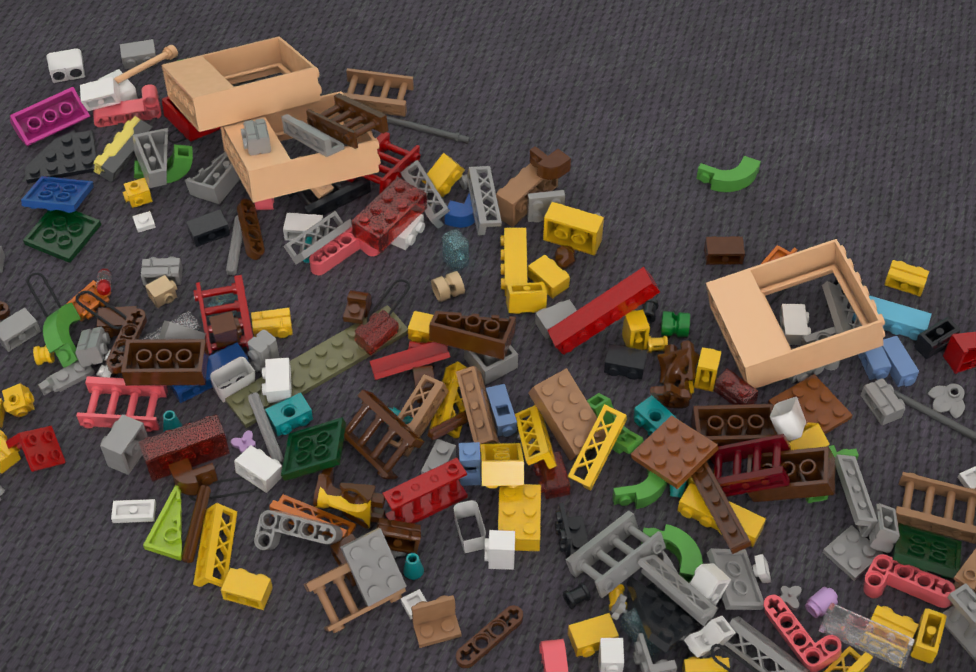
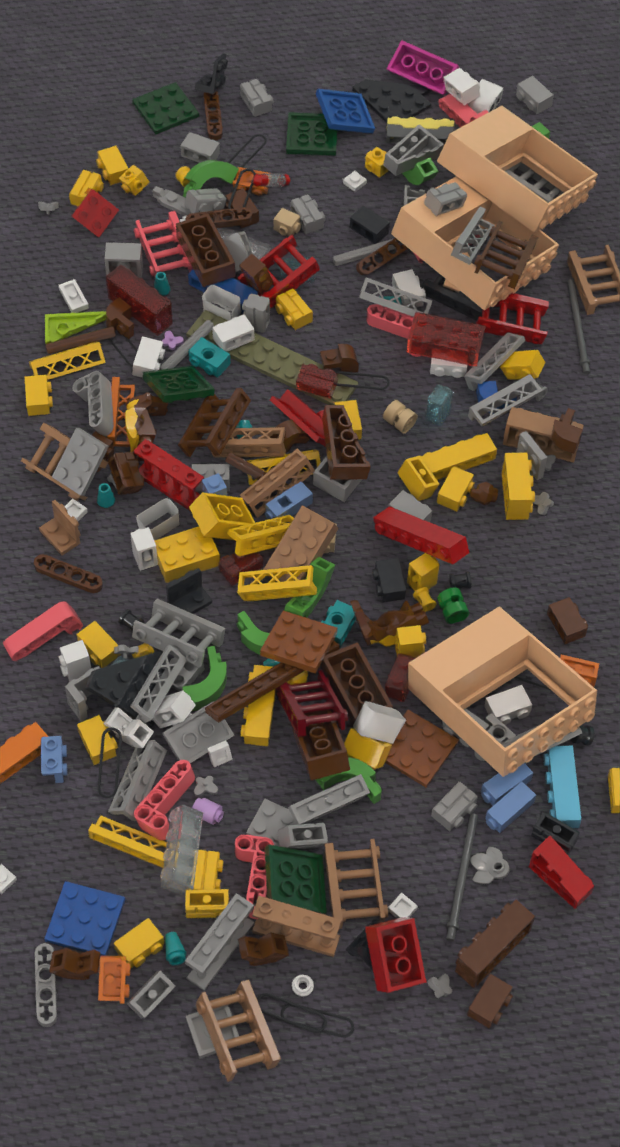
camera: 65 degrees right, 5 degrees up
(67, 59) = (492, 51): white piece -> none
(168, 53) = (550, 114): light nougat piece -> none

